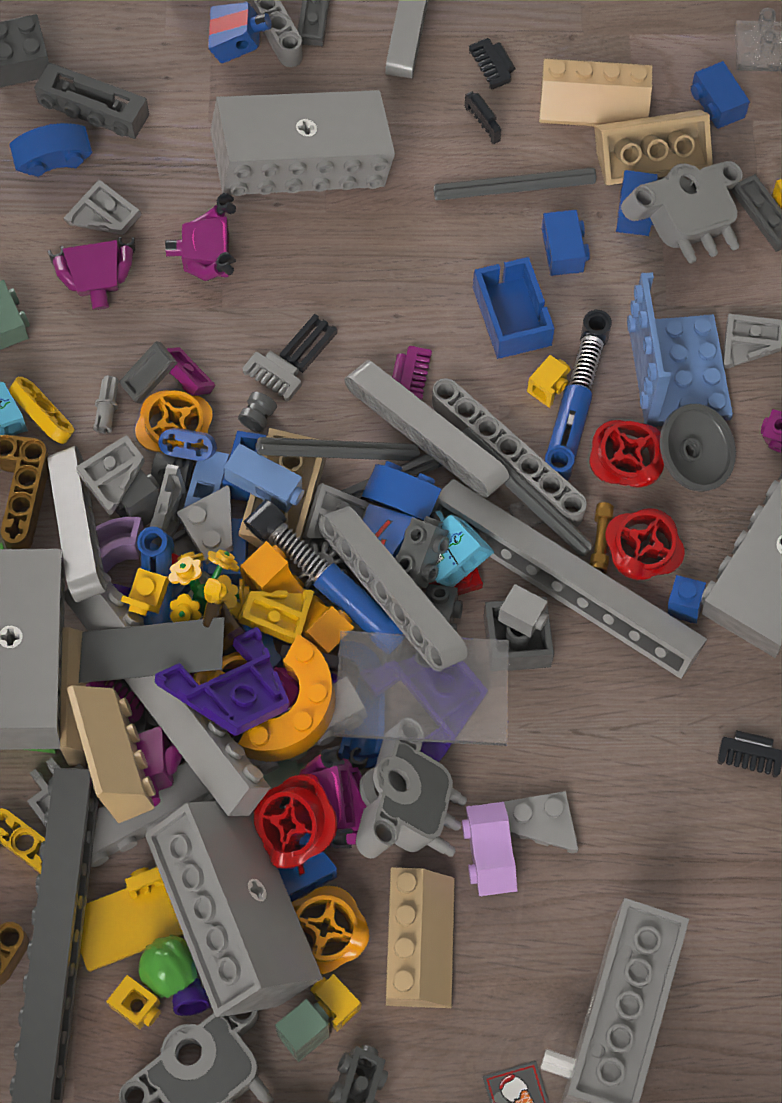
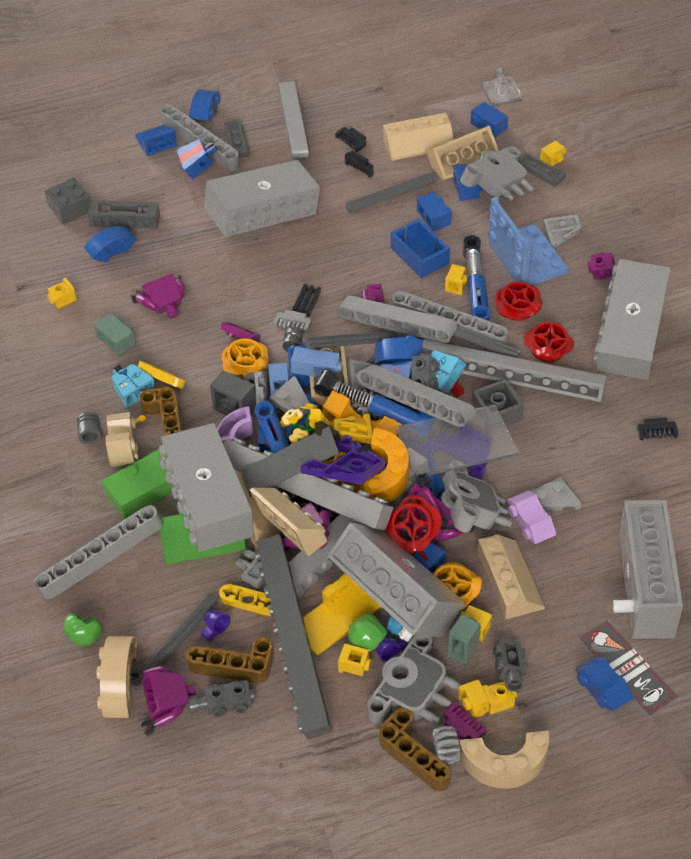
camera: 15 degrees left, 15 degrees down
(76, 526) = (207, 413): beam -> none
(103, 211) = (154, 266): light grey wing -> none
(106, 405) = (199, 362): light grey axle -> none
(112, 472) = (224, 382): light grey wing -> none
(146, 592) = (272, 436): yellow bracket -> none
(148, 372) = (218, 337): dark grey tile -> none
(187, 437) = (260, 357): blue beam -> none
(206, 242) = (224, 265): magenta torso -> none
(523, 611) = (497, 386): light grey brick -> none
(603, 515) = (518, 336): pearl gold bar -> none
(686, 599) = (585, 359): blue brick -> none
(708, 446) = (557, 286): dark grey dish -> none

